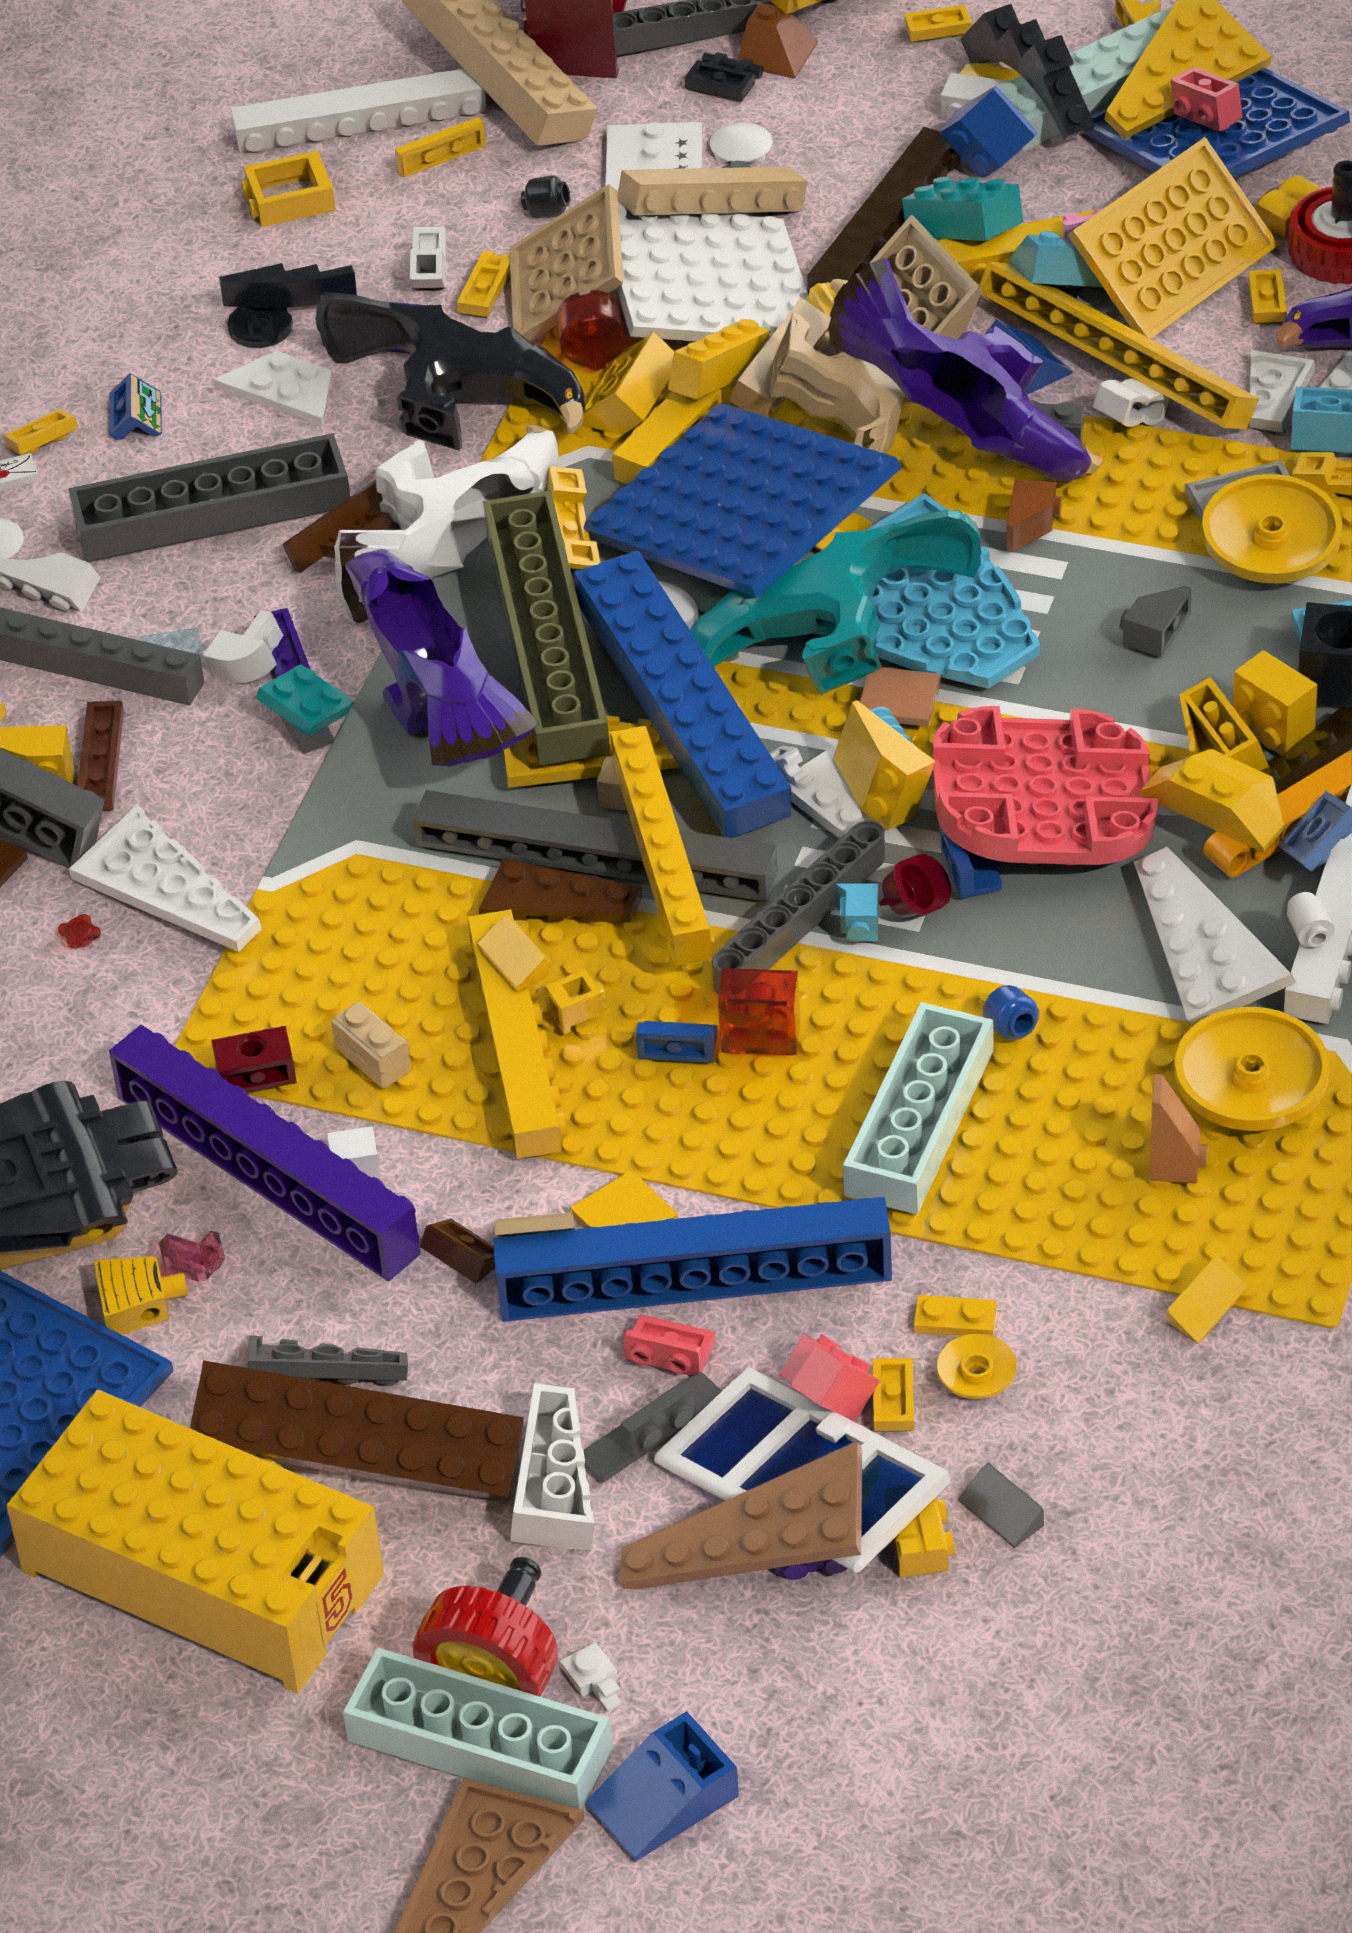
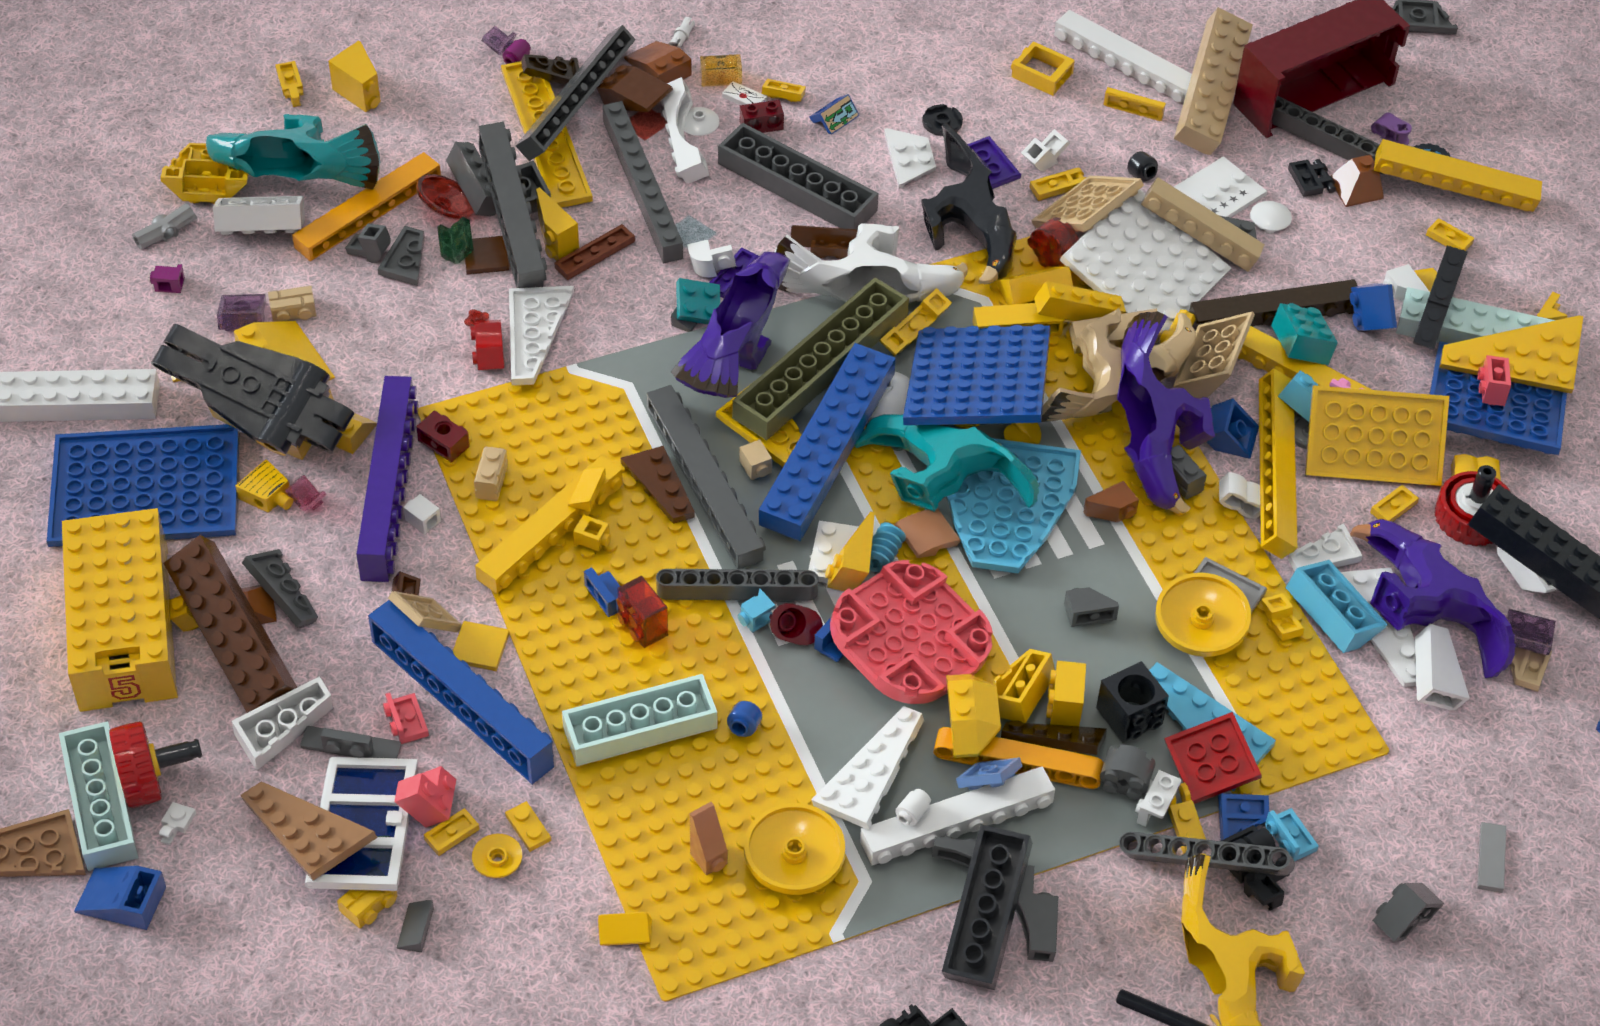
camera: 45 degrees right, 5 degrees up
(68, 466) = (763, 116): none -> dark red brick
(142, 938) = (488, 345): none -> red brick
(279, 288) = (970, 114): black slope -> none
(661, 846) = (709, 498): yellow brick -> none
(787, 761) = (829, 513): white plate -> none

